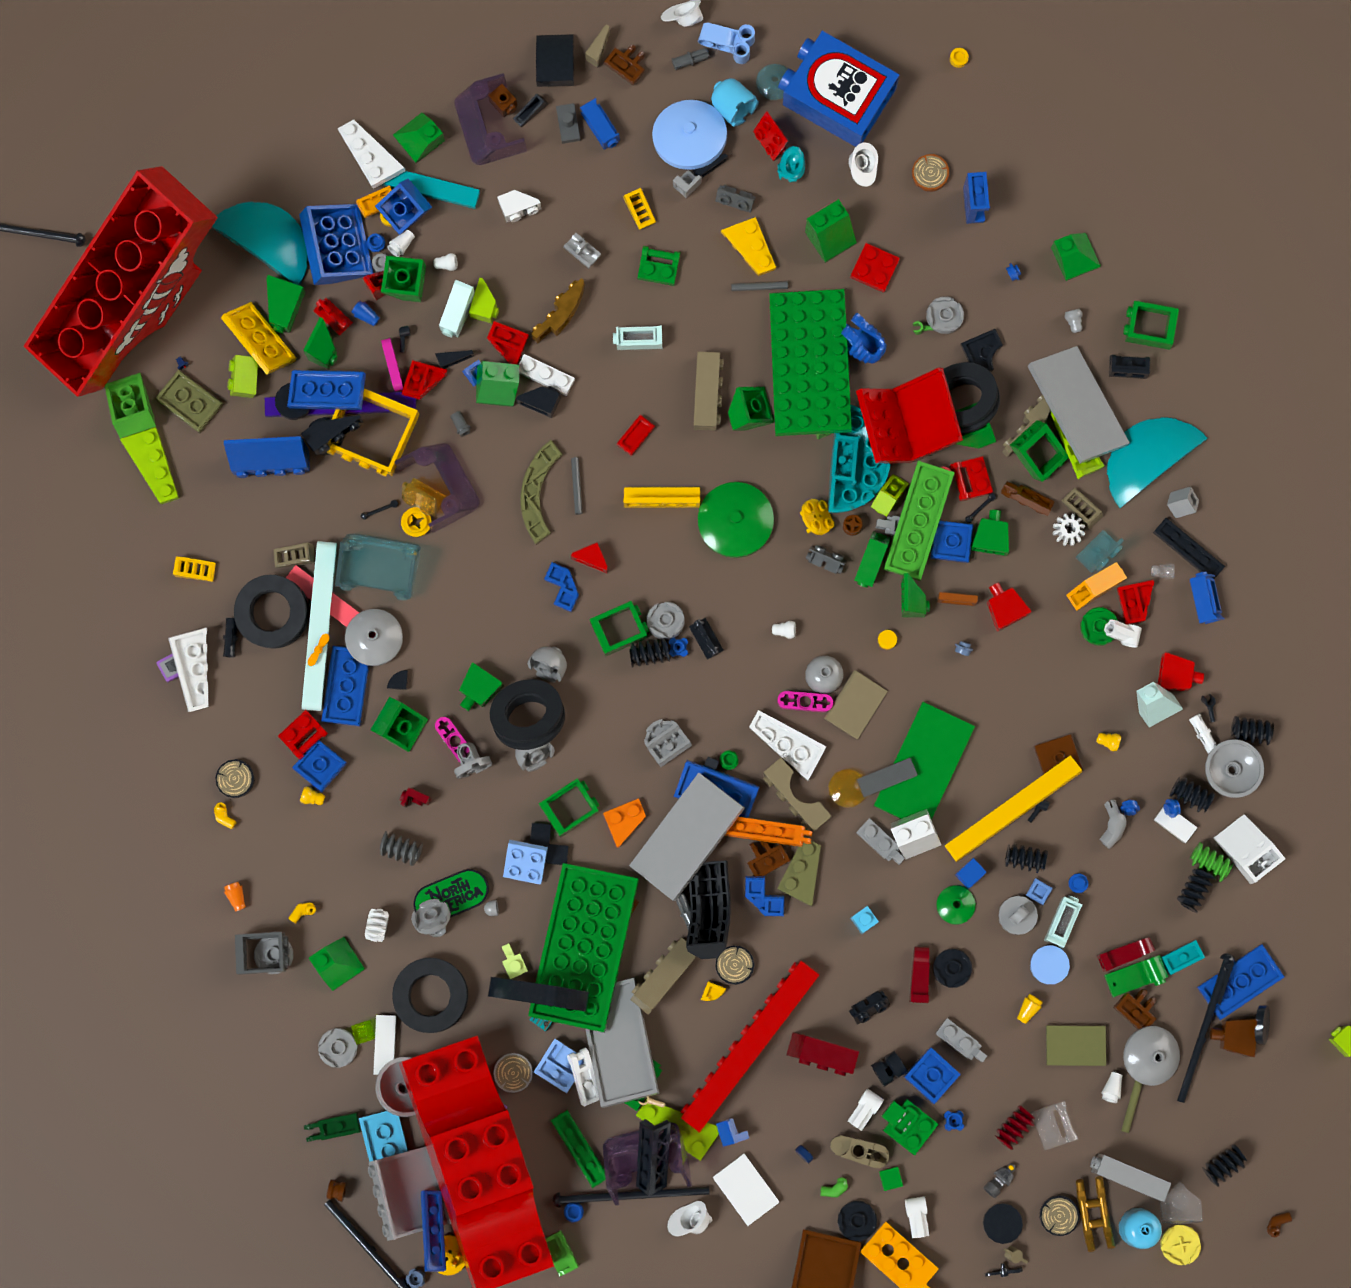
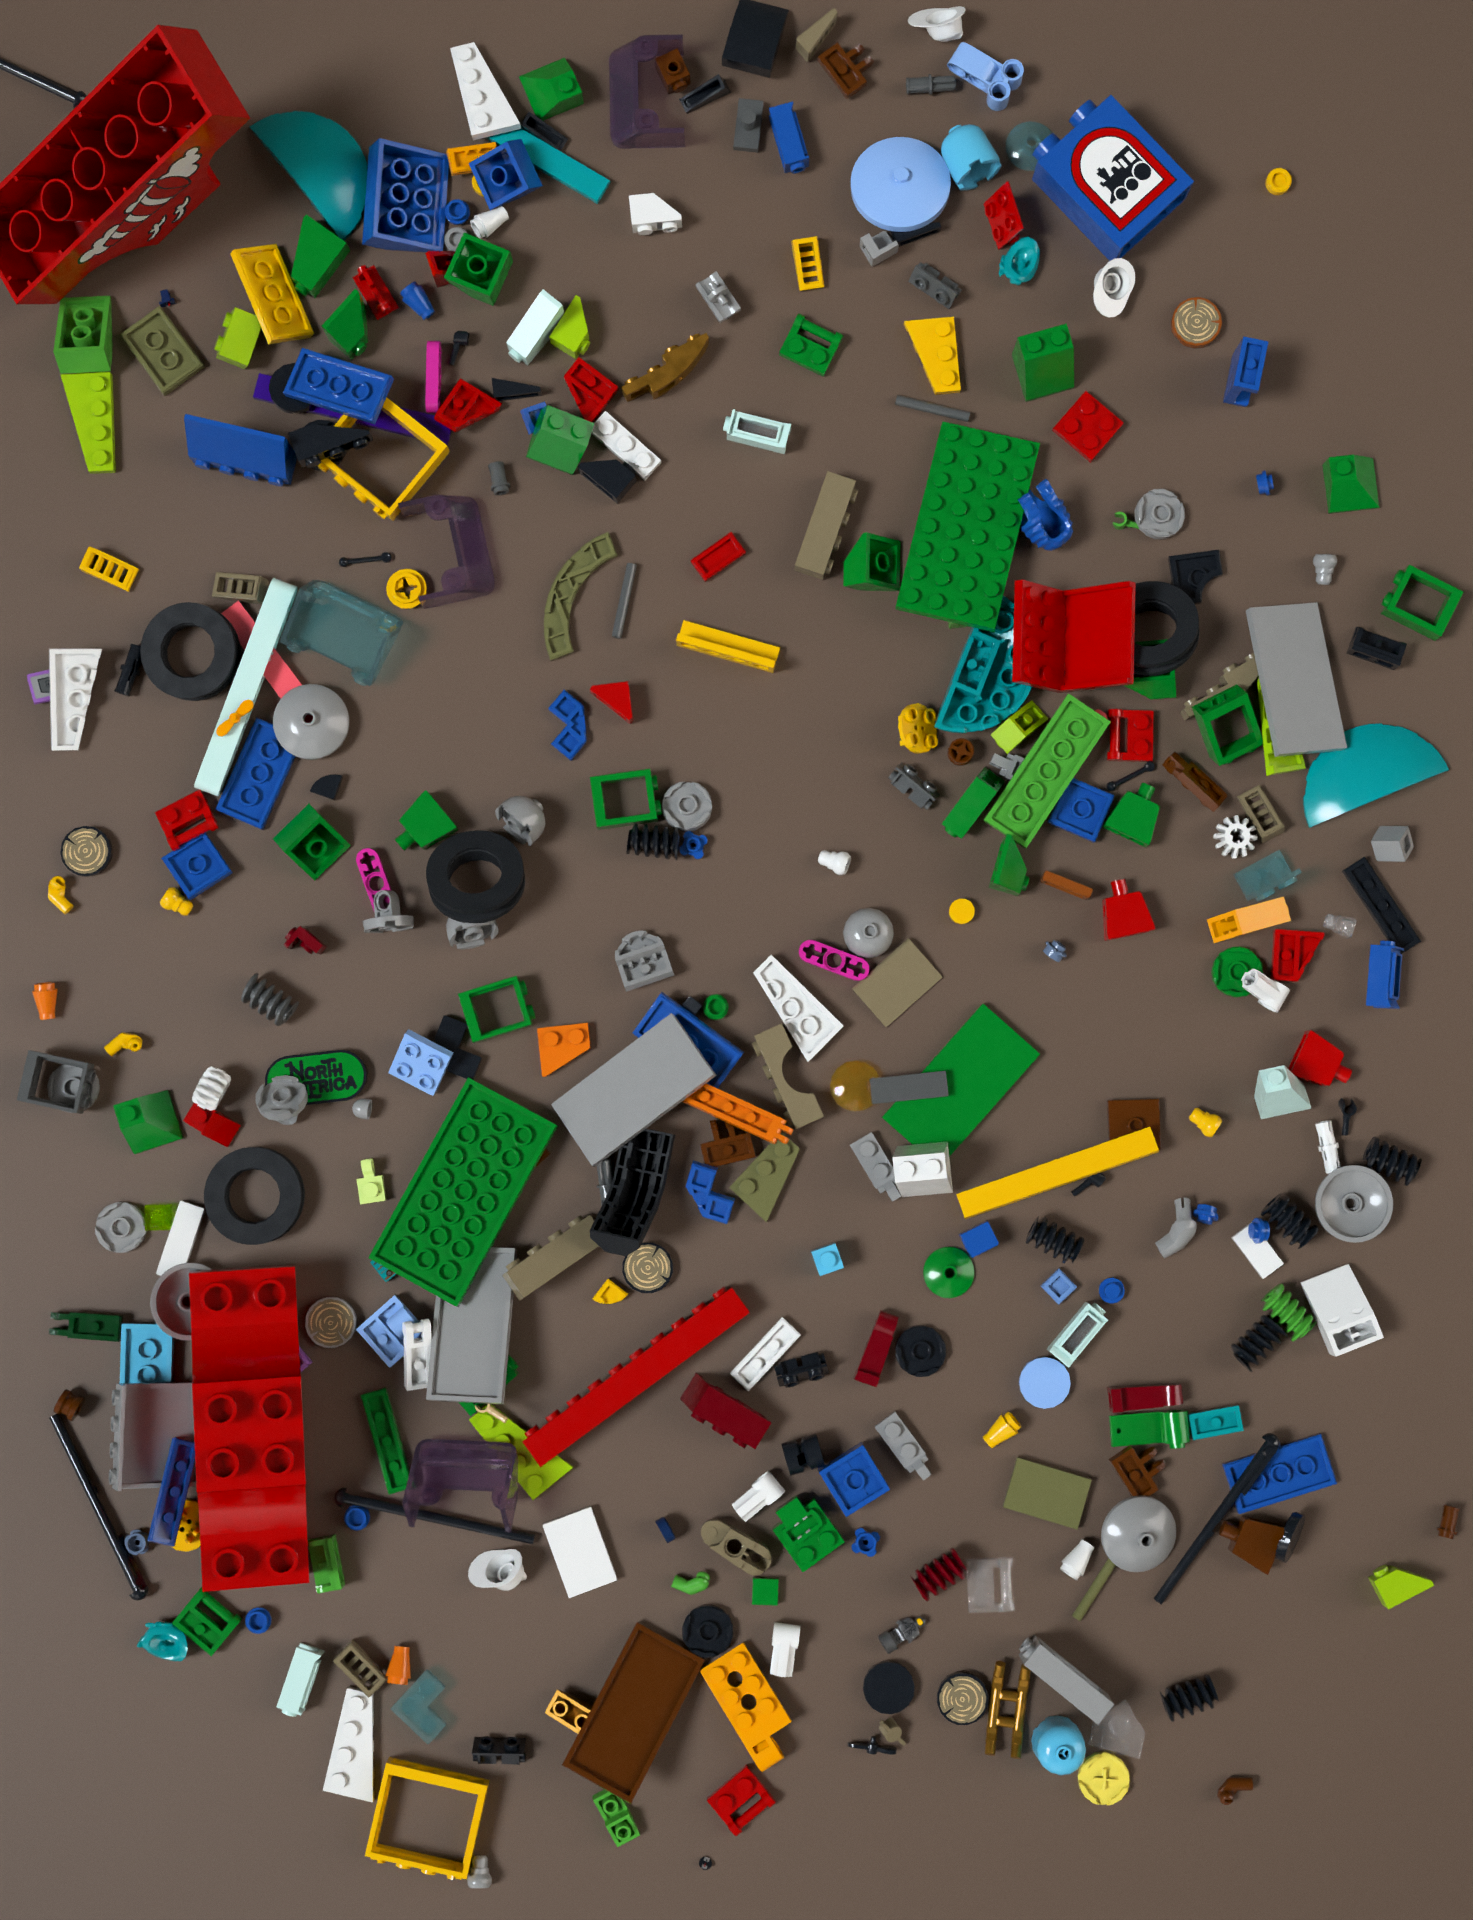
camera: 15 degrees right, 5 degrees up
(384, 951) = (212, 1124): none -> red slope
(421, 168) = (543, 131): none -> black piece
(422, 496) = (422, 558): clear yellow bracket -> none
(446, 262) = (540, 263): white piece -> none
(538, 994) = (388, 1236): black beam -> none
(648, 1158) = (467, 1482): black fence -> none
(706, 638) = (732, 843): black hinge -> none
(729, 1134) = (578, 1477): blue panel -> none
(735, 519) = (813, 702): green dish -> none
(839, 1003) = (765, 1354): none -> white tile
(1017, 915) = (1023, 1308): light grey tile -> none

